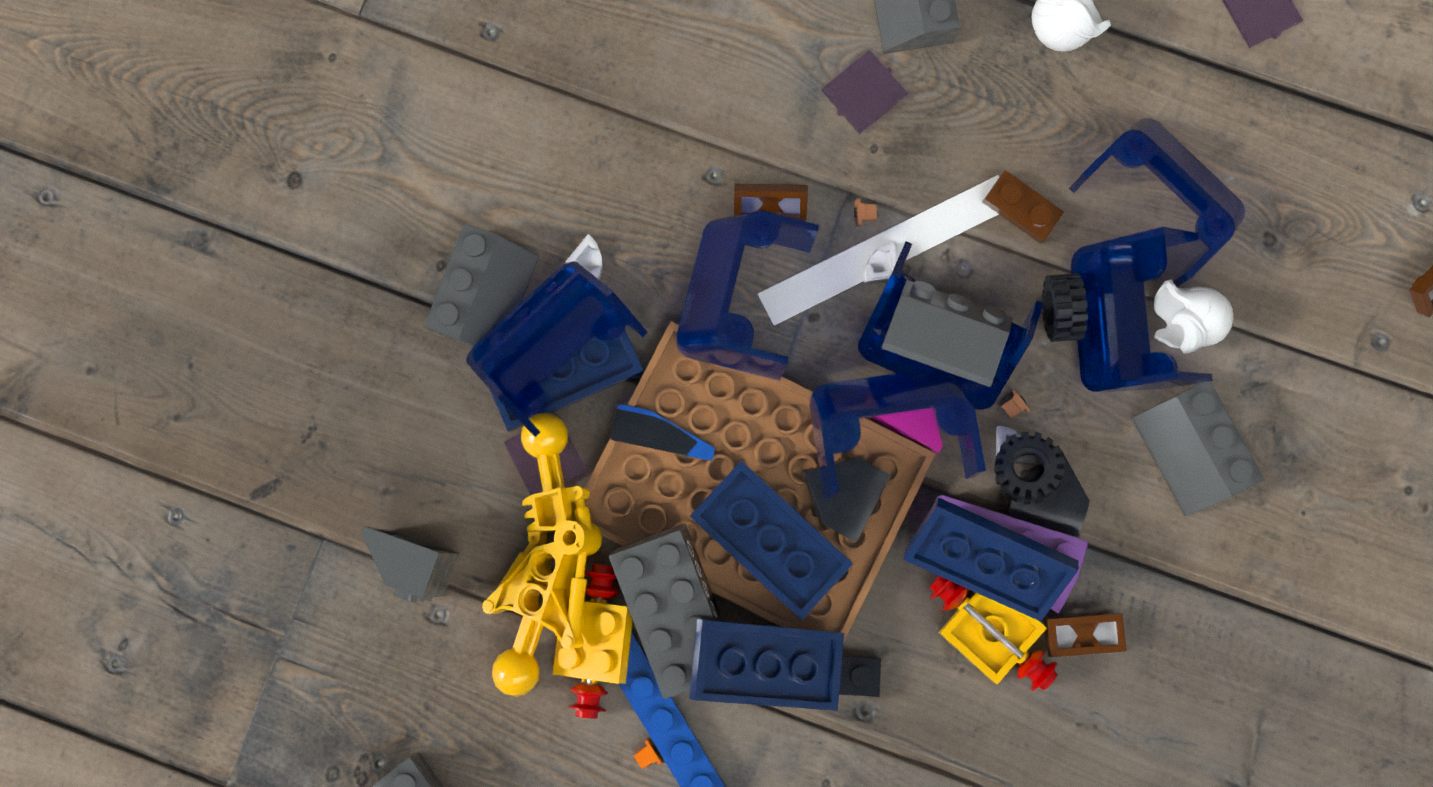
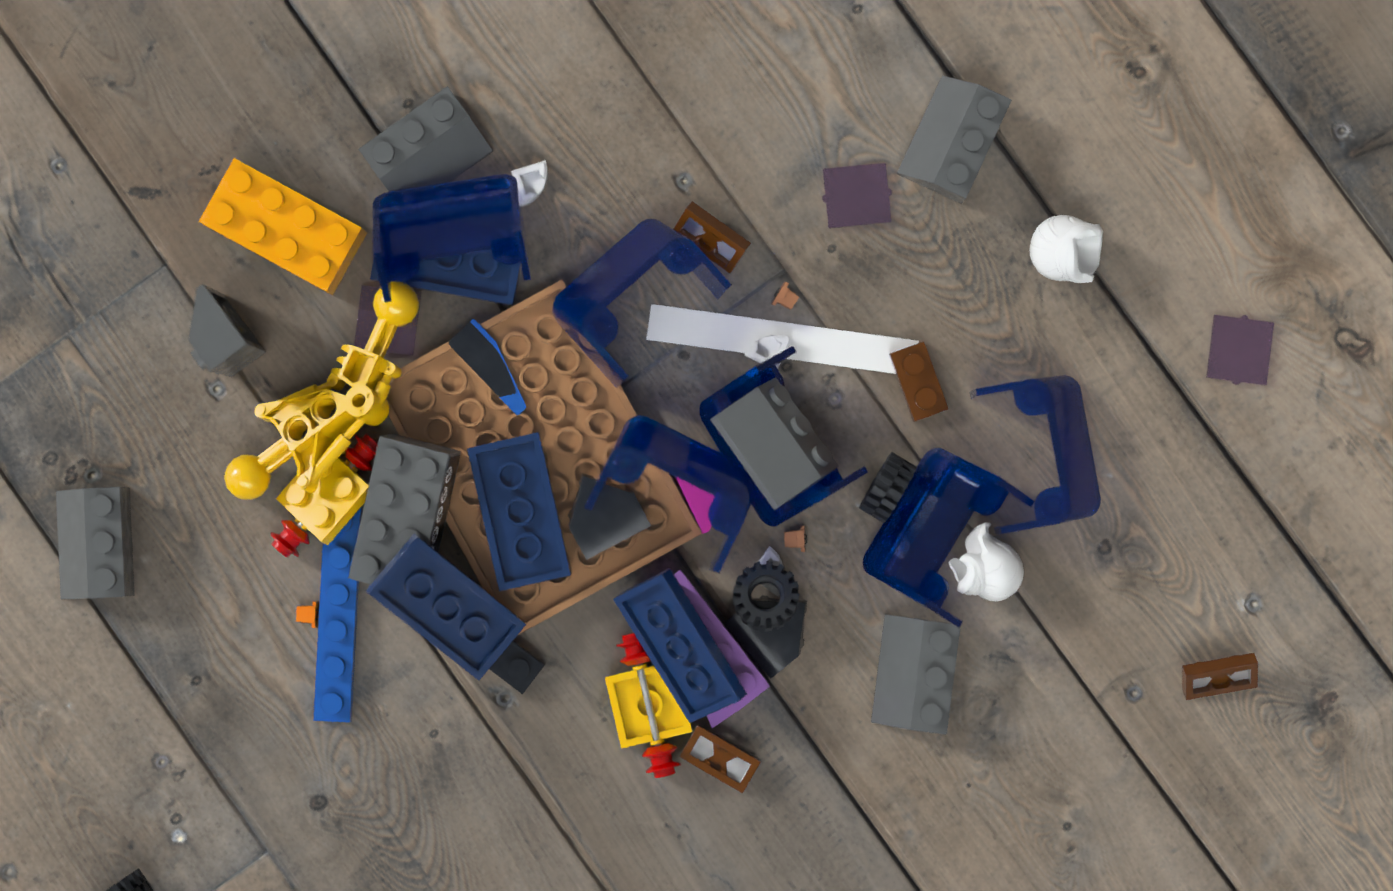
camera: 35 degrees right, 5 degrees up
(402, 436) = (283, 226): none -> light orange brick

